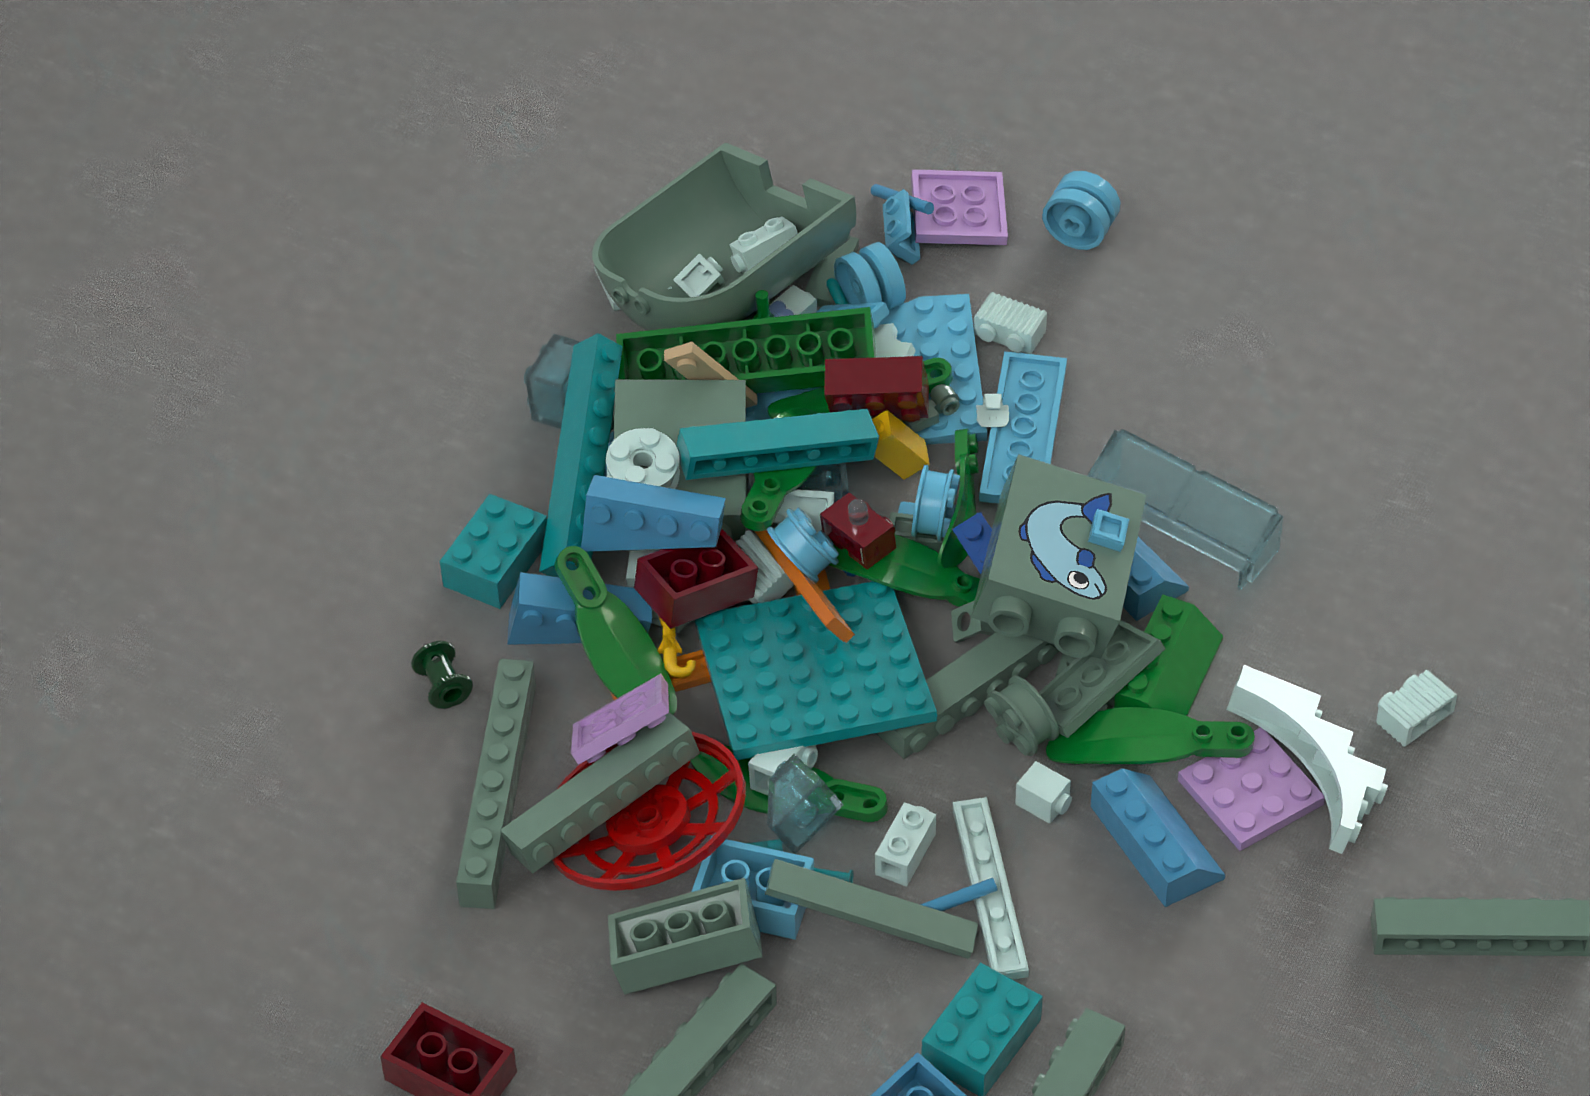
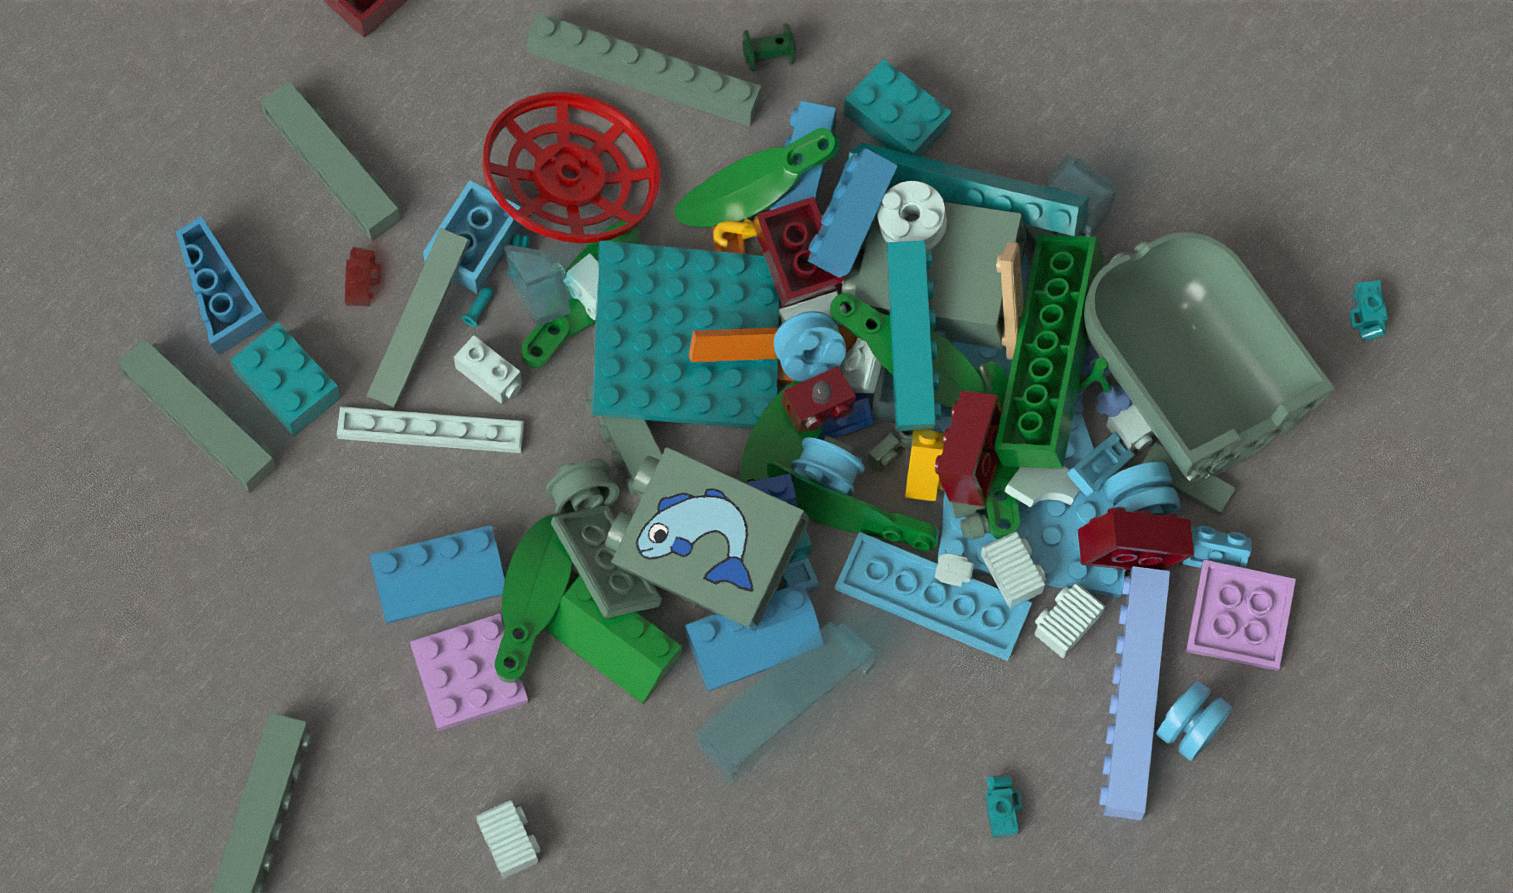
camera: 100 degrees right, 20 degrees up
(599, 792) = (593, 134): sand green brick -> none
(612, 169) = (1370, 309): none -> teal piece
(620, 720) = (659, 160): lavender plate -> none
(683, 936) = (434, 168): sand green slope -> none
(699, 276) = (1192, 351): light aqua bracket -> none
(758, 244) = (1210, 410): light aqua brick -> none
(830, 996) = (359, 277): none -> clear red piece
(881, 489) = (887, 449): none -> sand green plate
(914, 203) = (1256, 559): dark azure bar -> none
(926, 267) = (1135, 539): none -> dark red brick
(963, 895) = (420, 380): dark azure bar -> none
(982, 359) = (1014, 569): none -> light aqua brick
(1043, 792) = (507, 494): light aqua brick -> none
(1065, 265) = (1136, 693): none -> light blue brick
(1108, 530) = (706, 574): medium azure tile -> none
(1216, 343) = (1001, 807): none -> teal piece
(1323, 747) = (437, 745): light aqua arch -> none

